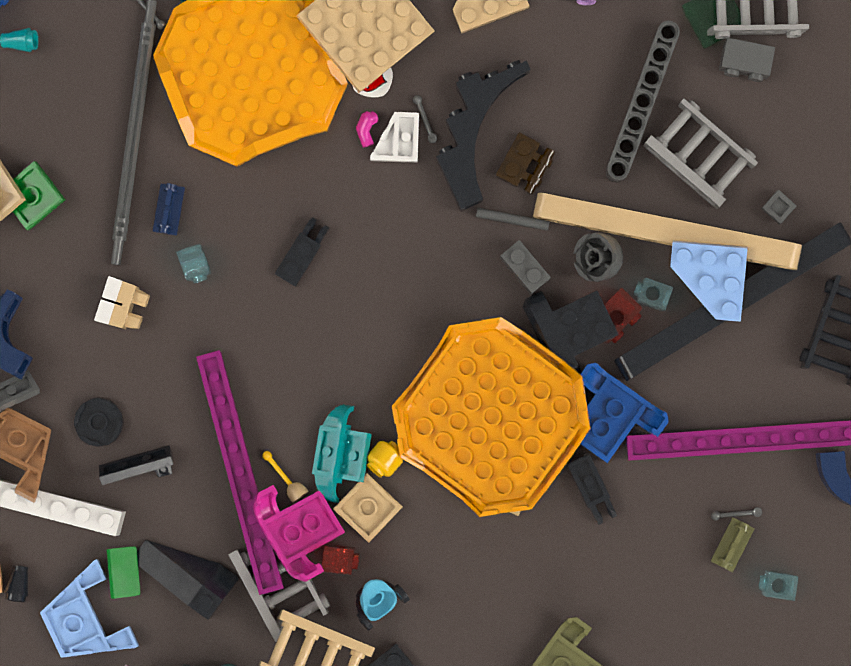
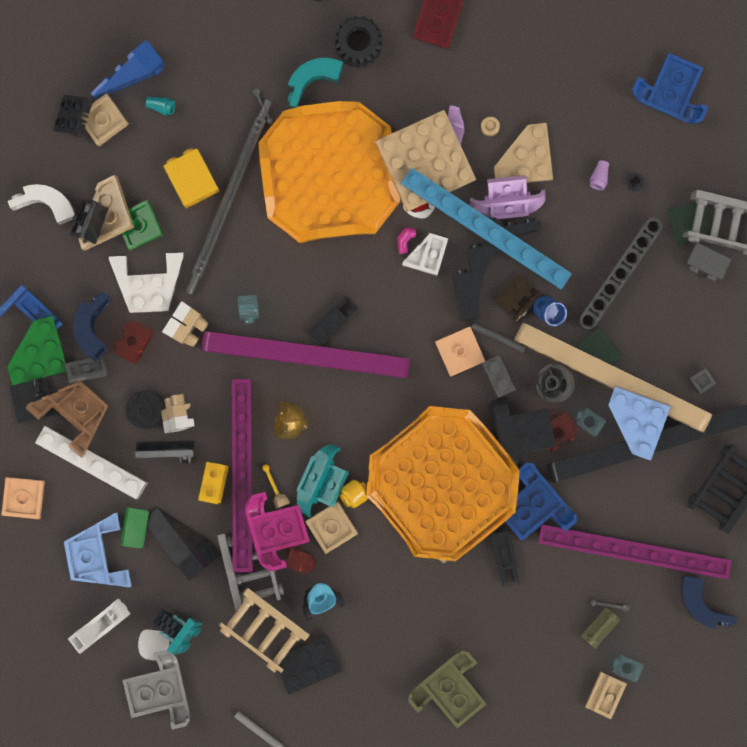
camera: 15 degrees right, 0 degrees up
(17, 584) = (52, 516): black cone -> none
(65, 274) = (147, 291): none -> white wing
(72, 333) = (134, 352): none -> clear red brick
(80, 120) = (191, 177): none -> yellow panel
(137, 419) = (175, 414): none -> hips
(168, 209) = (239, 262): dark blue hinge -> none
(206, 490) = (213, 483): none -> yellow panel
(280, 302) = (305, 354): none -> magenta beam
(282, 390) = (290, 421): none -> clear yellow cylinder
(432, 138) = (453, 260): dark grey hinge -> none
(462, 88) = (486, 228): none -> dark azure plate
(470, 248) = (460, 351): none -> light nougat plate
(480, 45) = (508, 199): none -> lavender plate
(568, 169) = (550, 310): none -> blue wheel
(642, 198) = (601, 347): none -> clear green plate
(695, 177) = (645, 342): light grey fence -> none
(760, 626) = (605, 695): none -> tan plate

